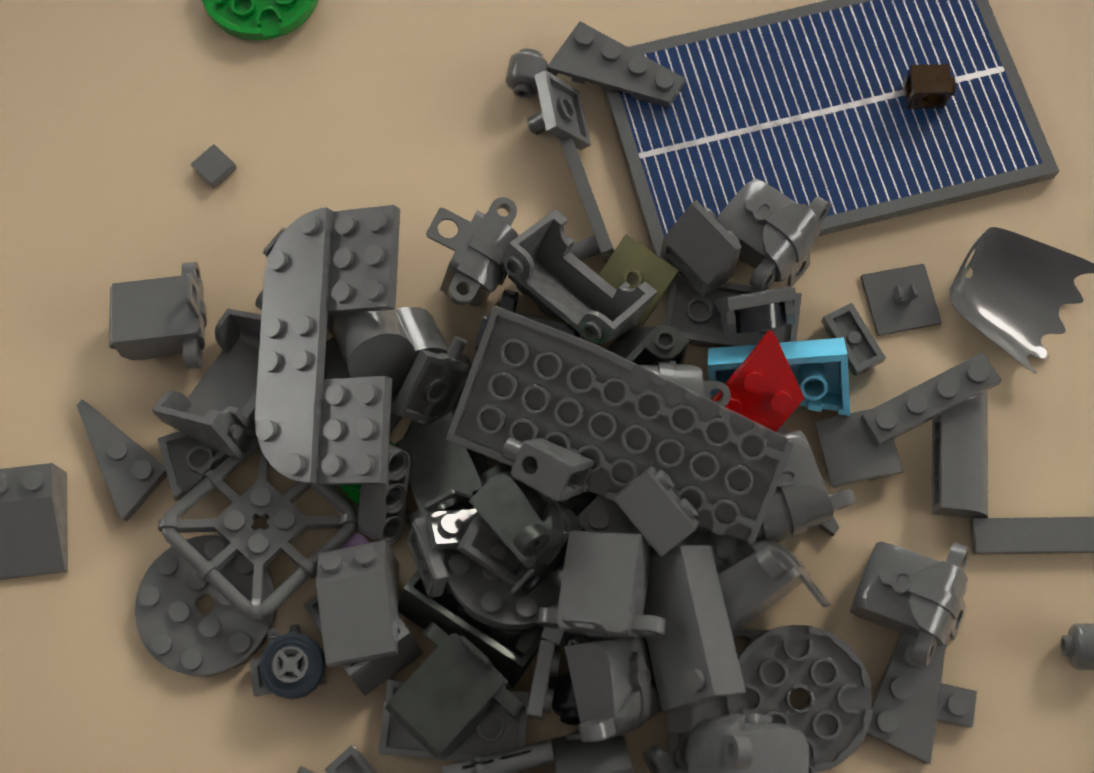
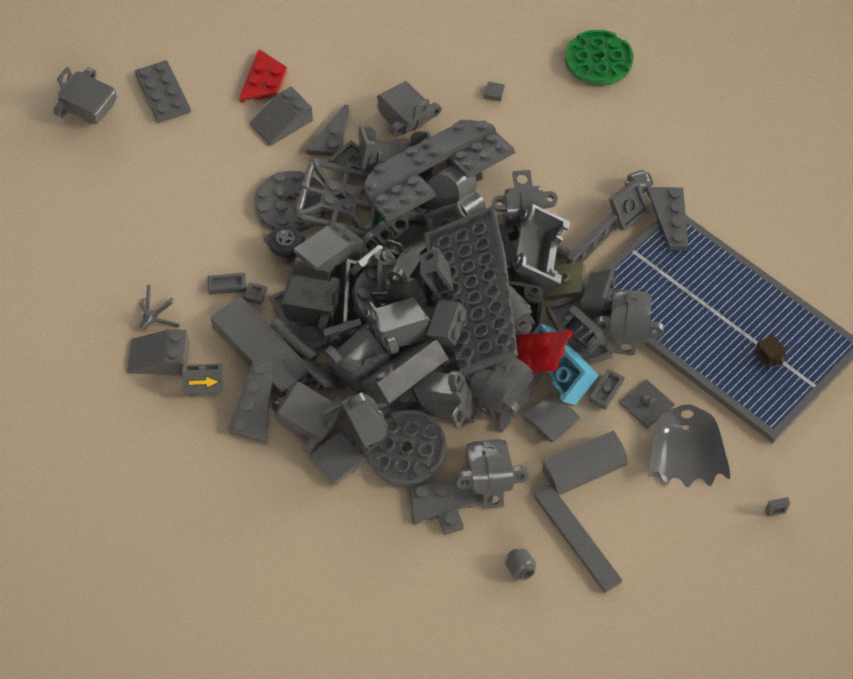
camera: 55 degrees right, 15 degrees down
(930, 399) = (596, 429): dark grey plate -> none

